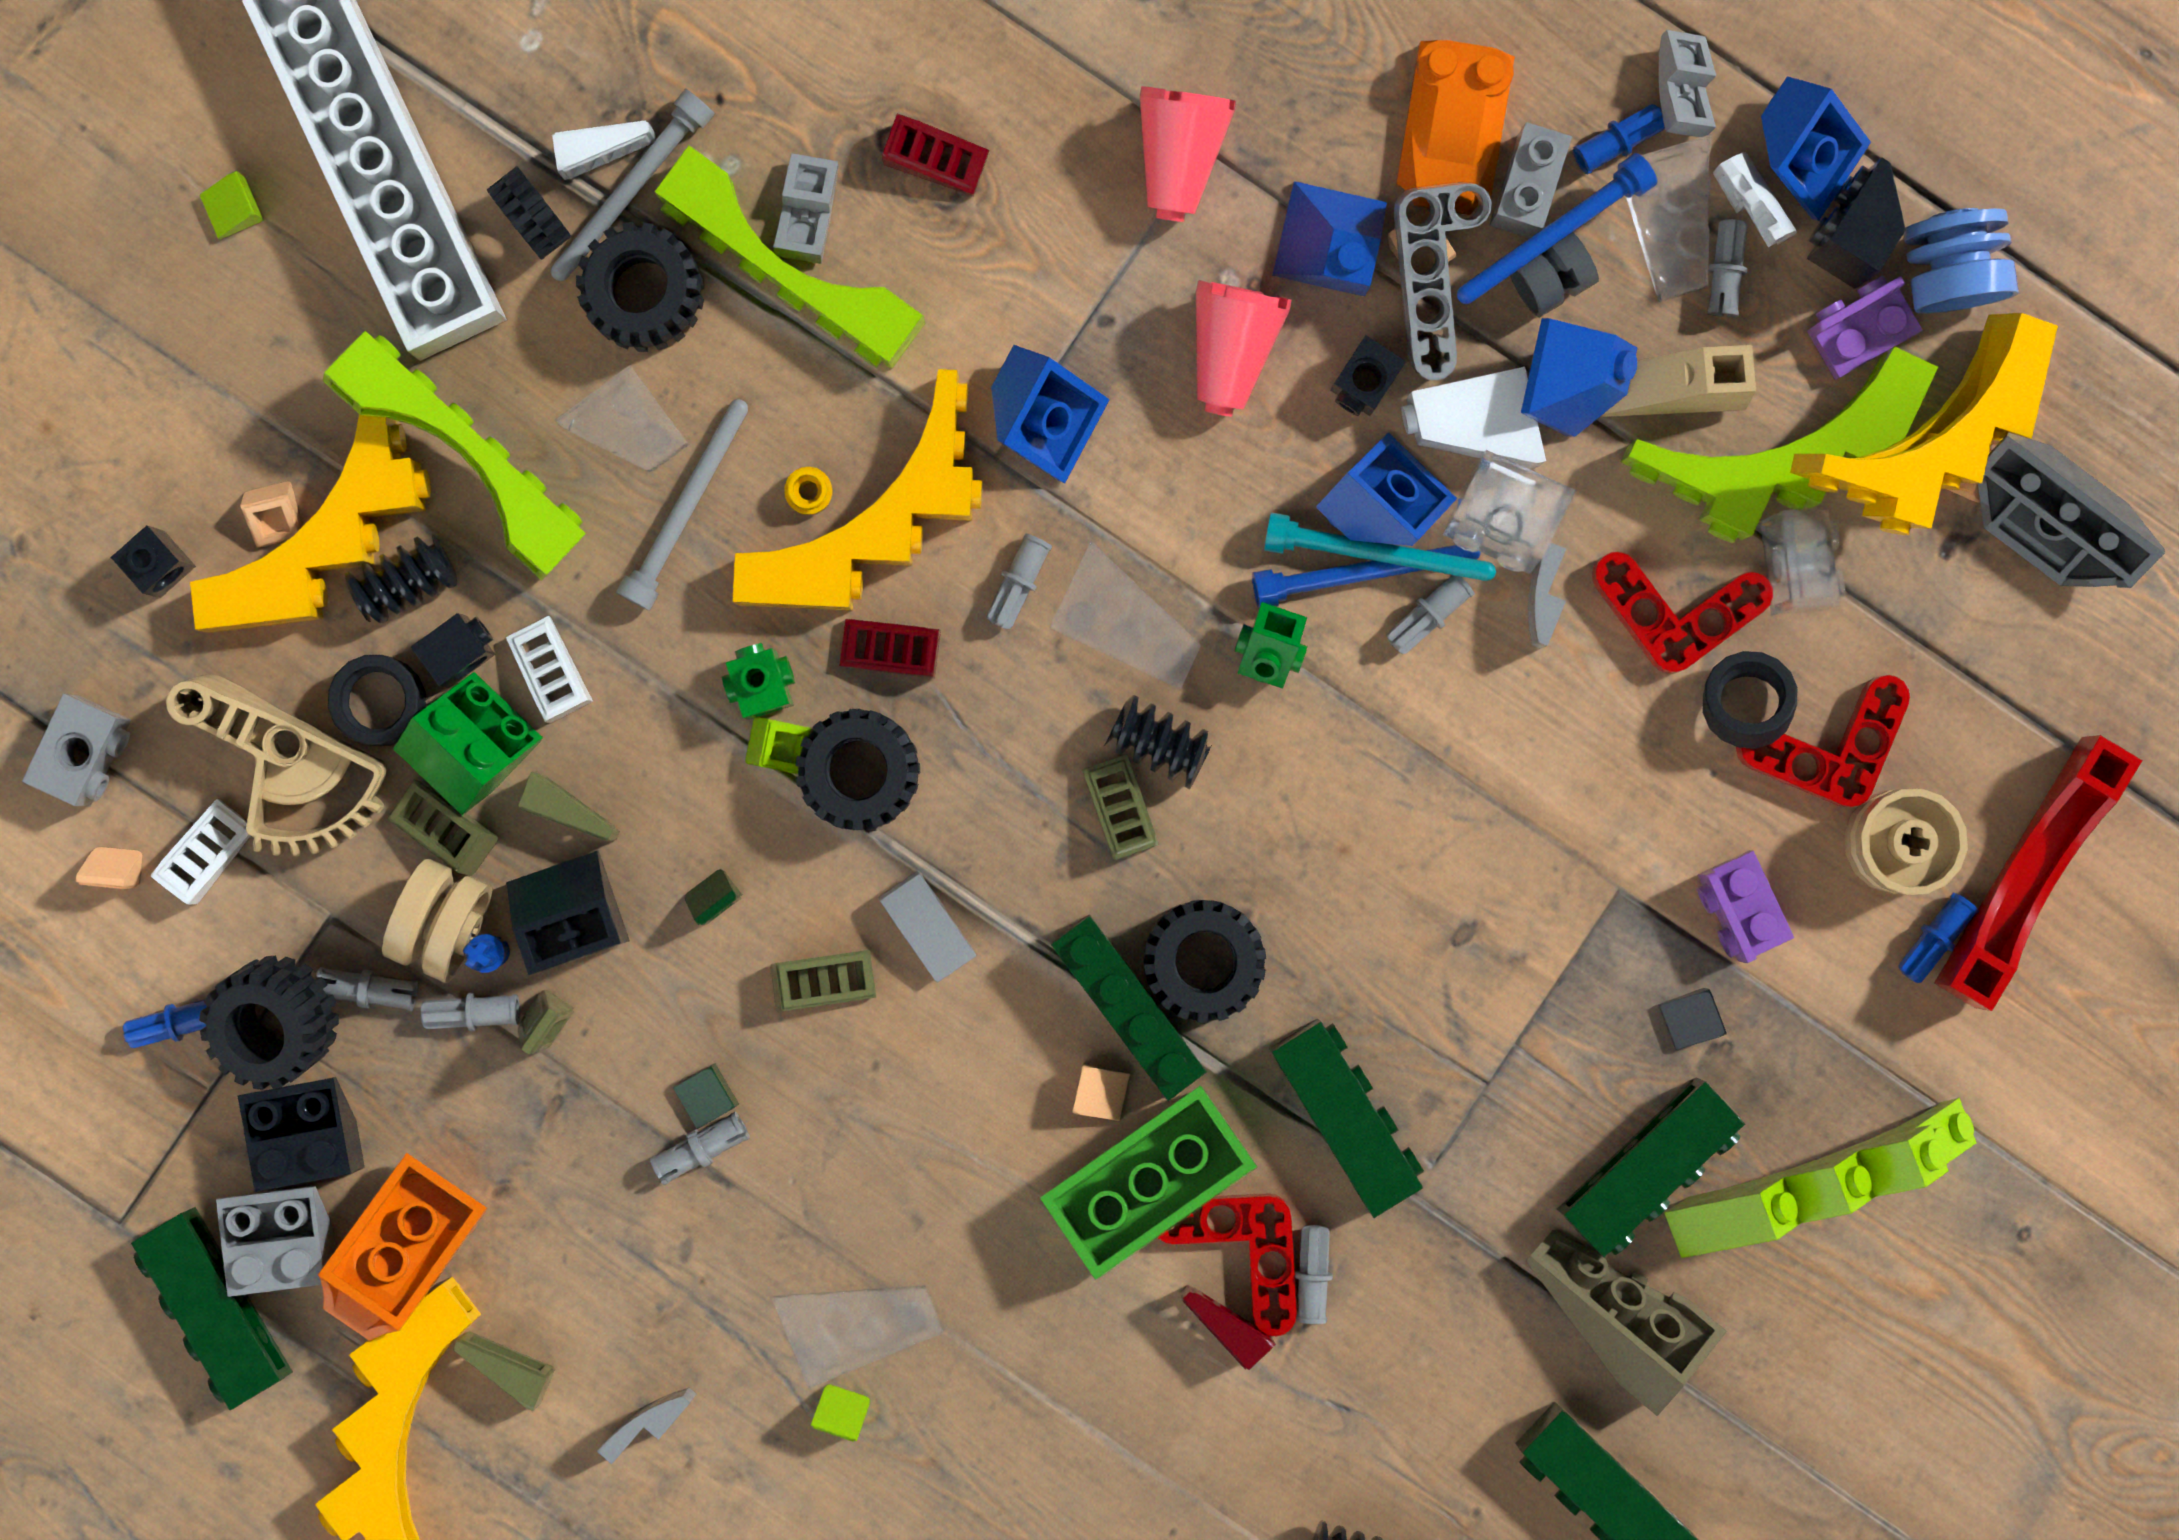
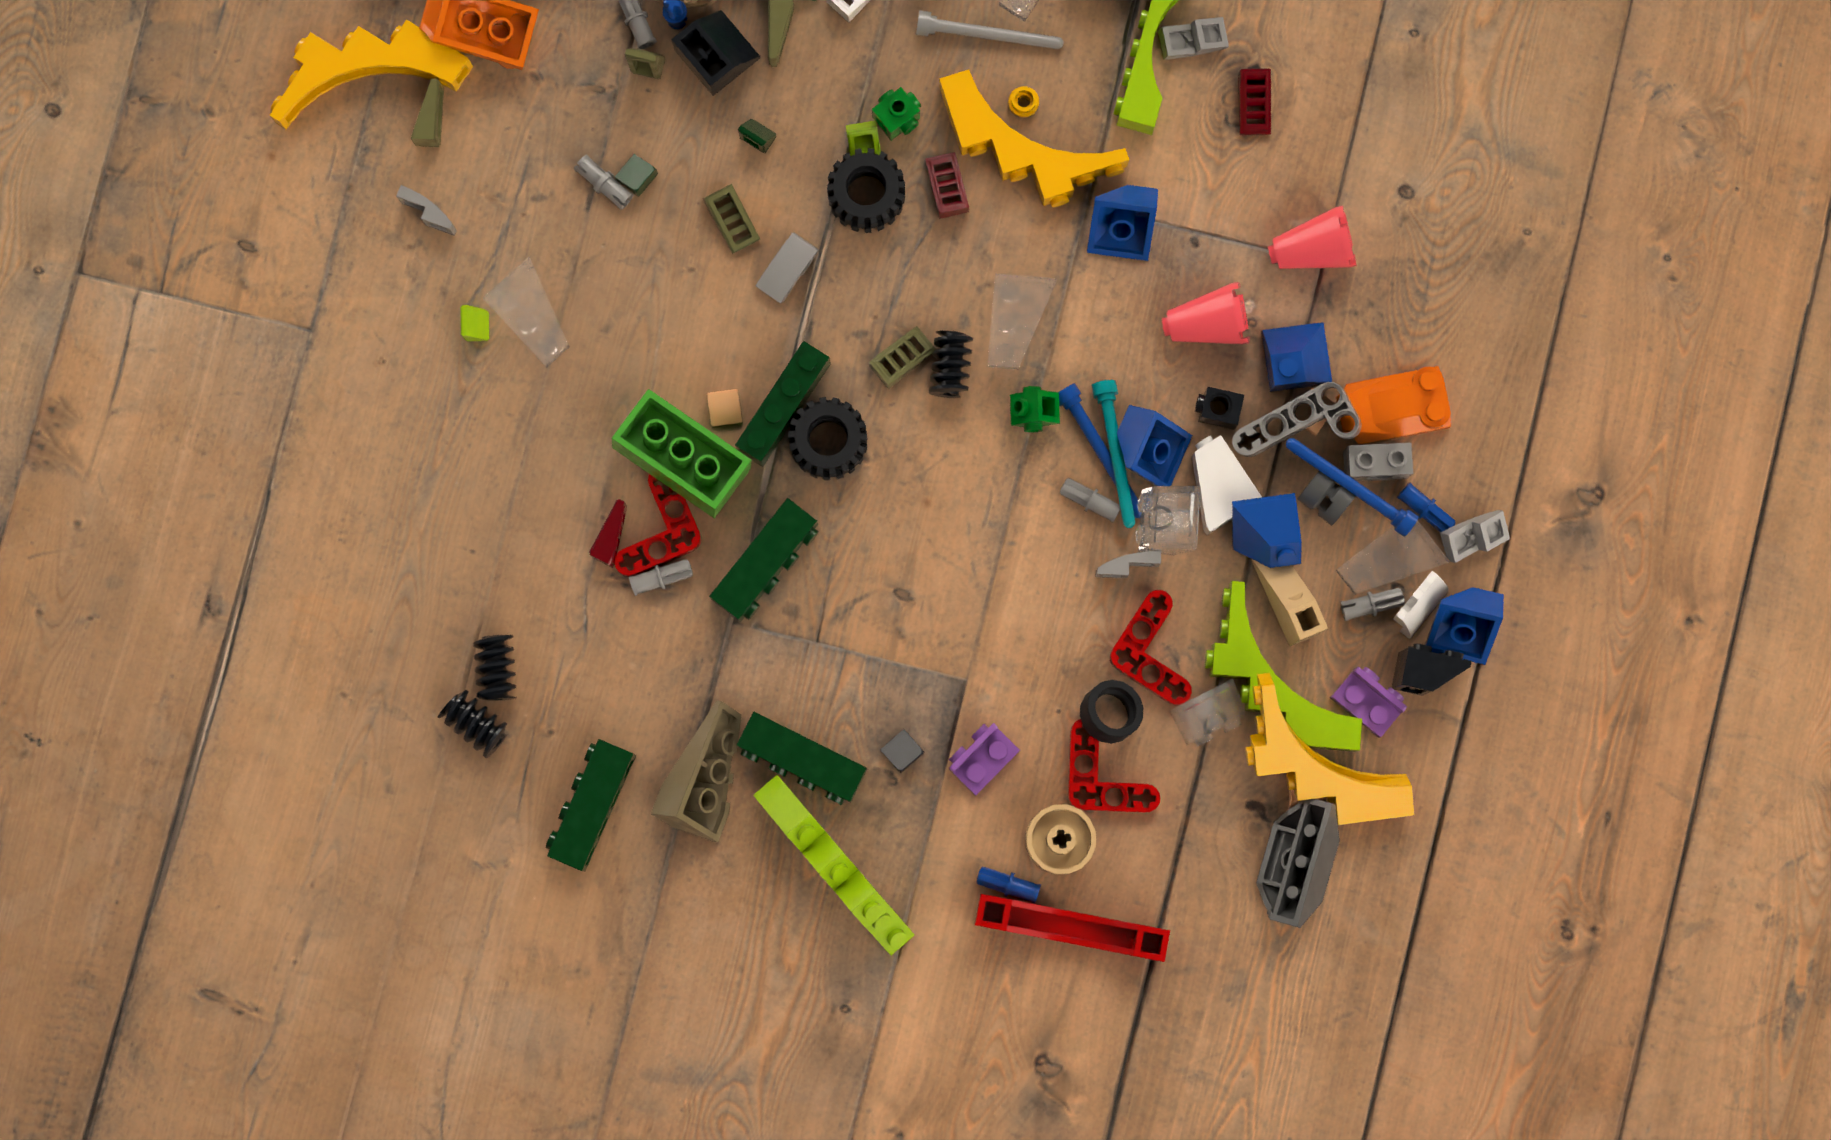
camera: 70 degrees right, 5 degrees down
(1018, 581) = (1016, 245): light grey axle -> none
(1960, 260) = (1425, 742): medium blue wheel -> none

